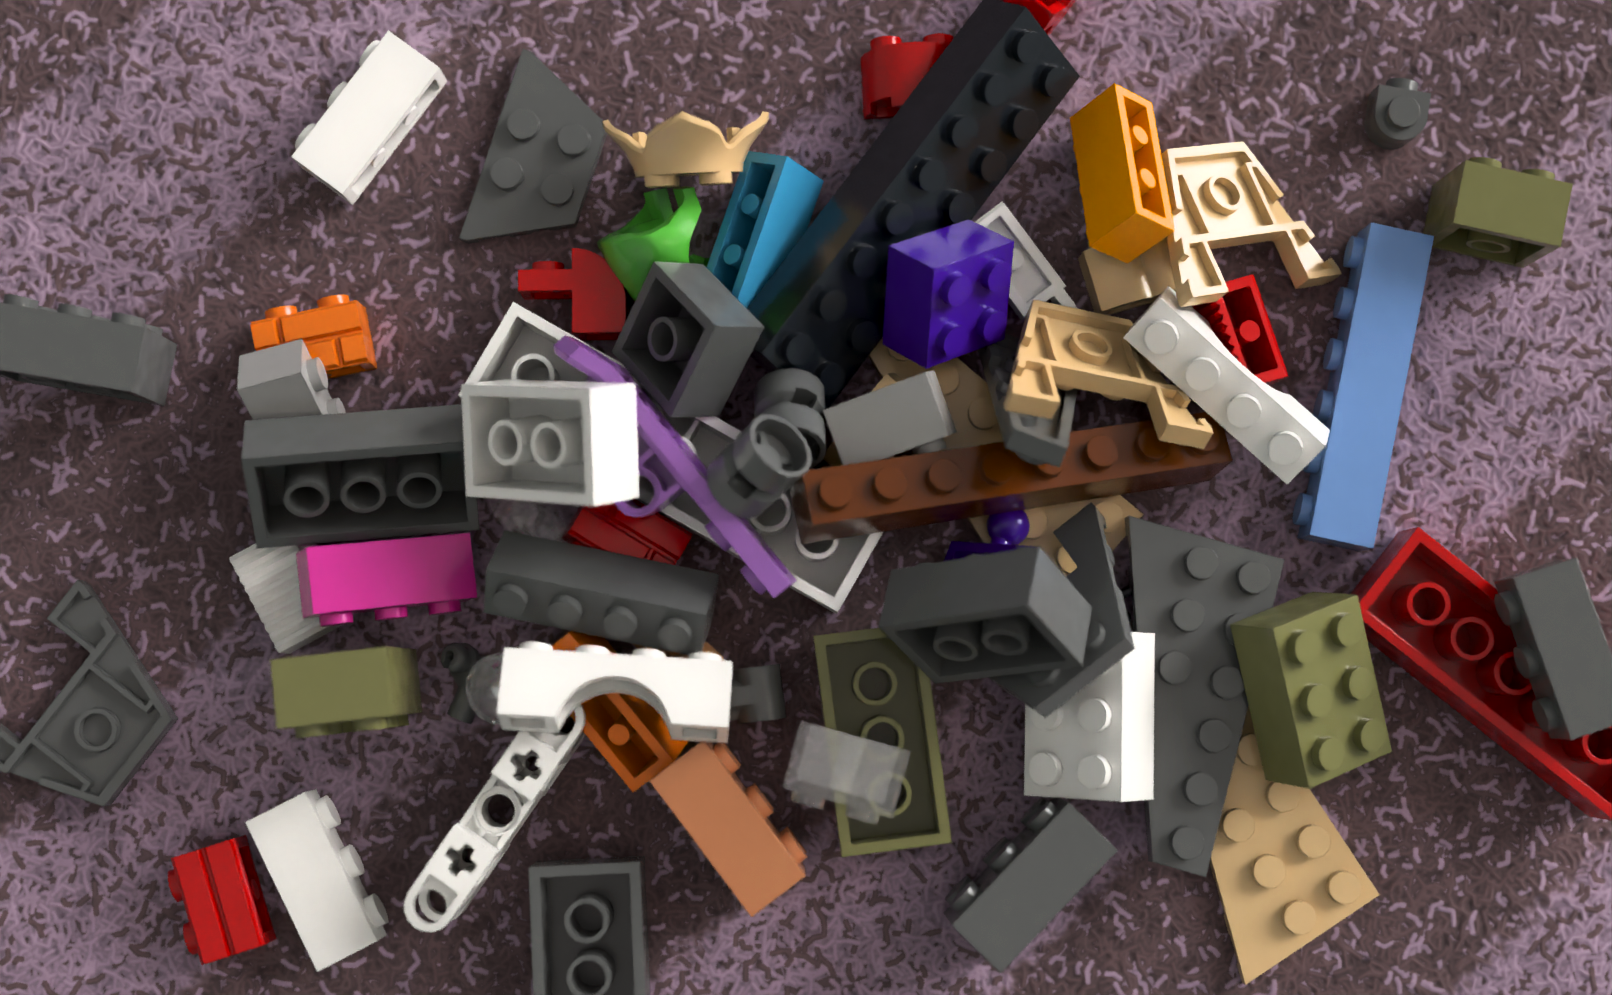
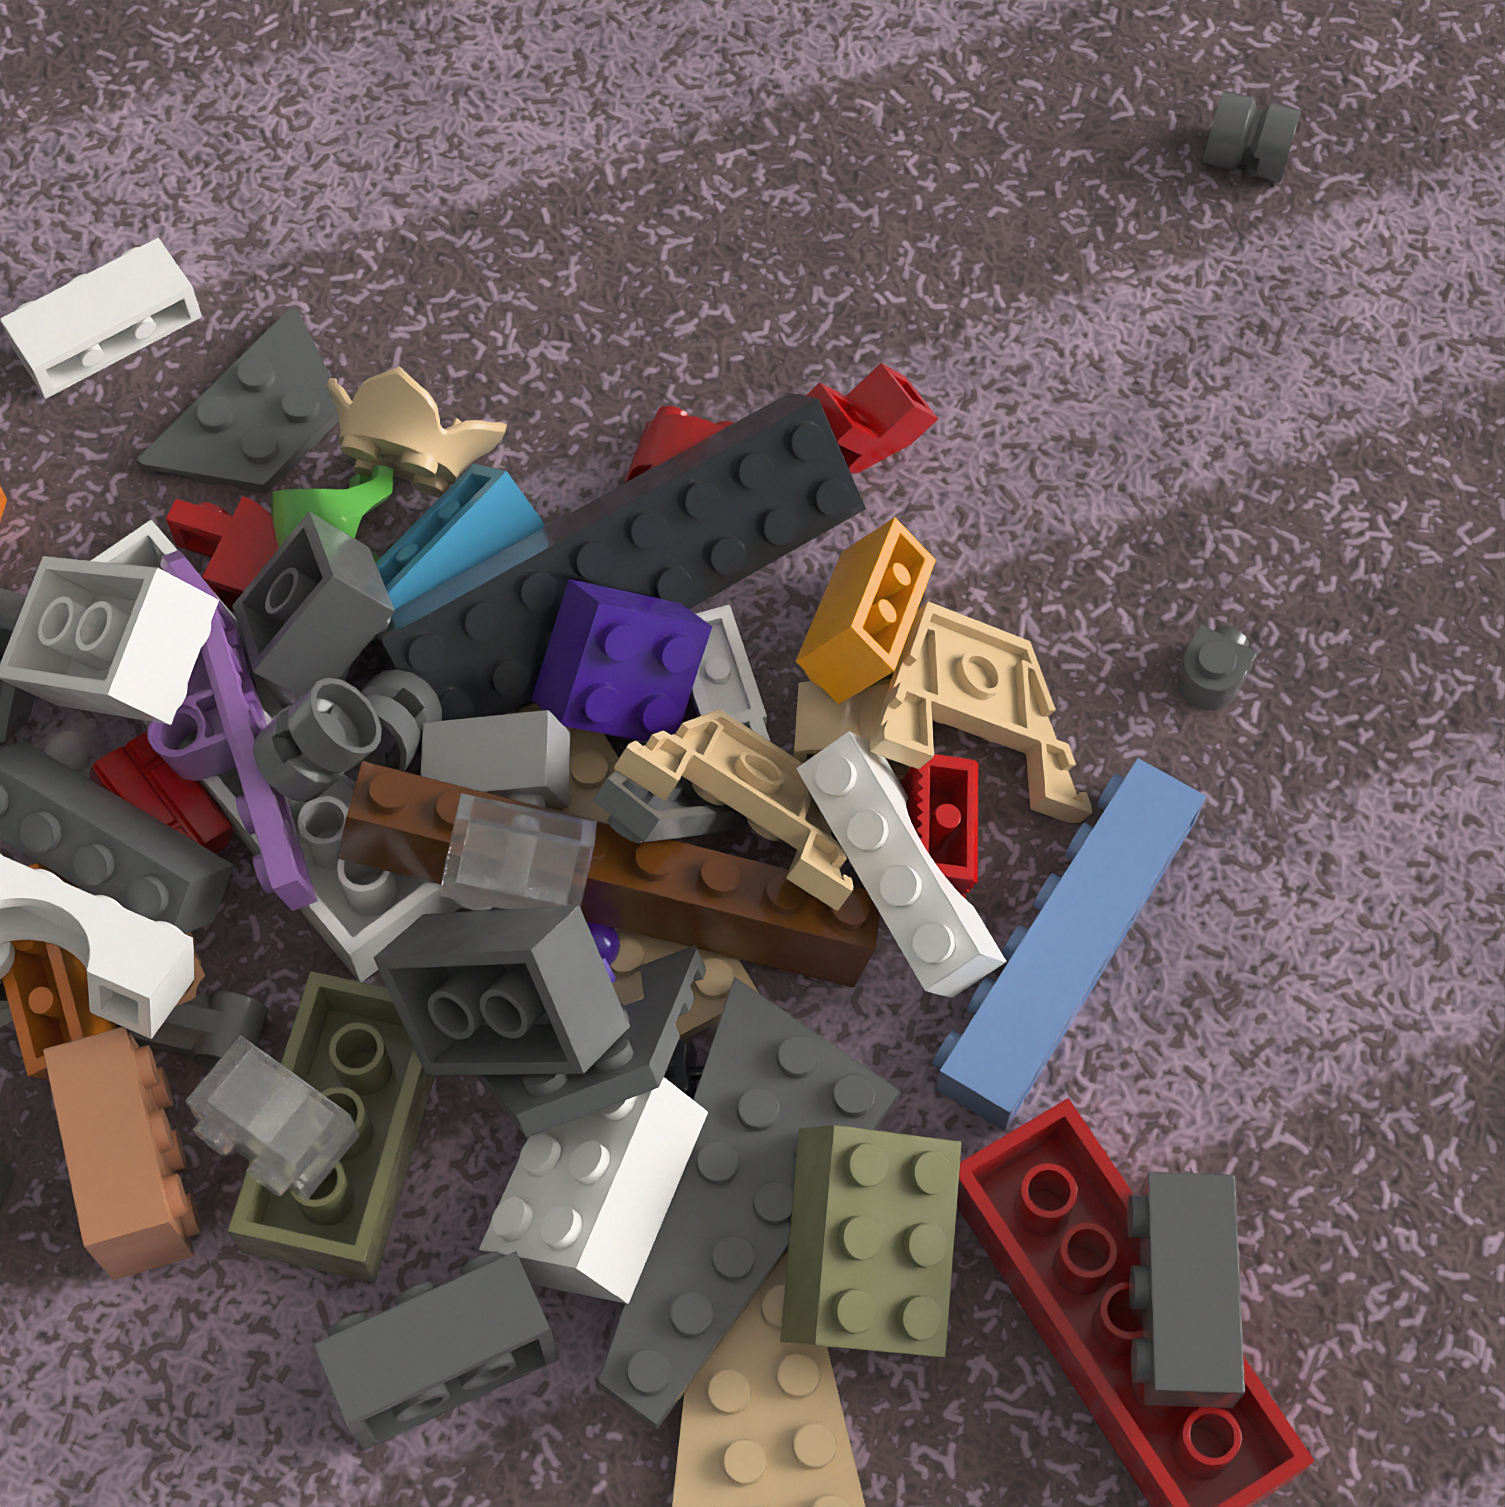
camera: 25 degrees right, 20 degrees down
(961, 510) = (516, 856): none -> clear brick
(1498, 212) = (1285, 793): olive brick -> none

